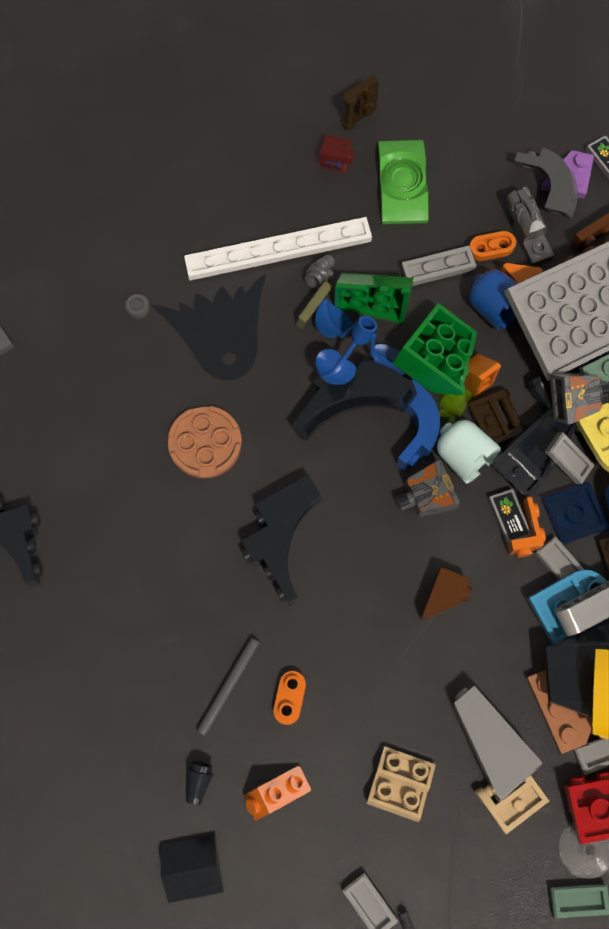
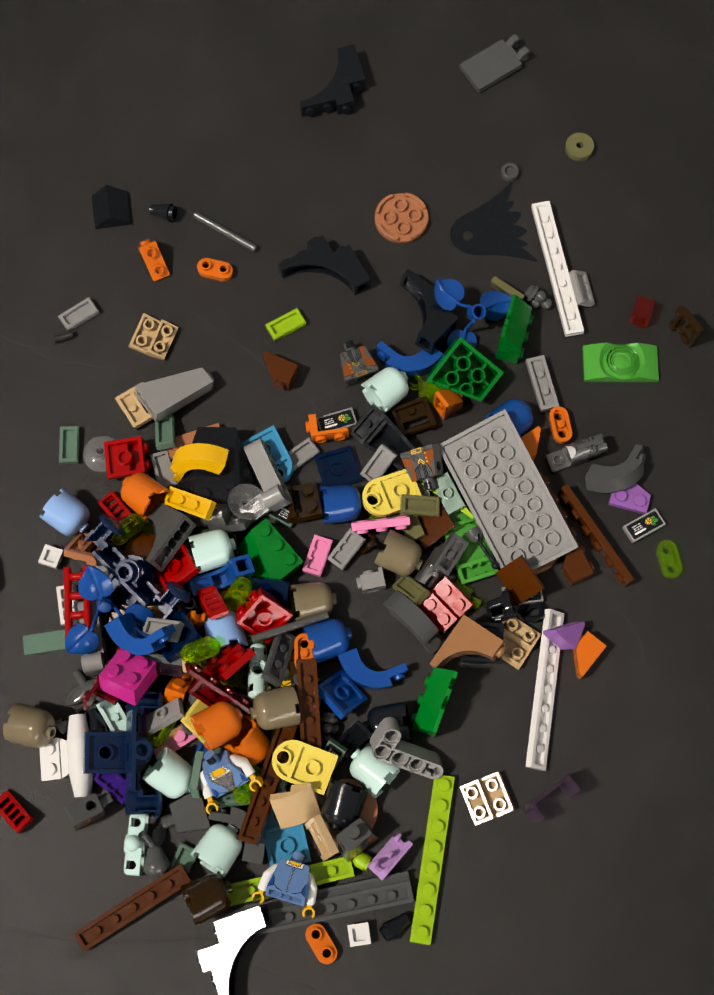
camera: 90 degrees right, 0 degrees up
(103, 232) = (582, 140): none -> olive piece
(306, 219) = (581, 288): none -> light grey plate
(371, 591) = (285, 324): none -> lime tile
(556, 751) = (165, 433): none -> sand green tile

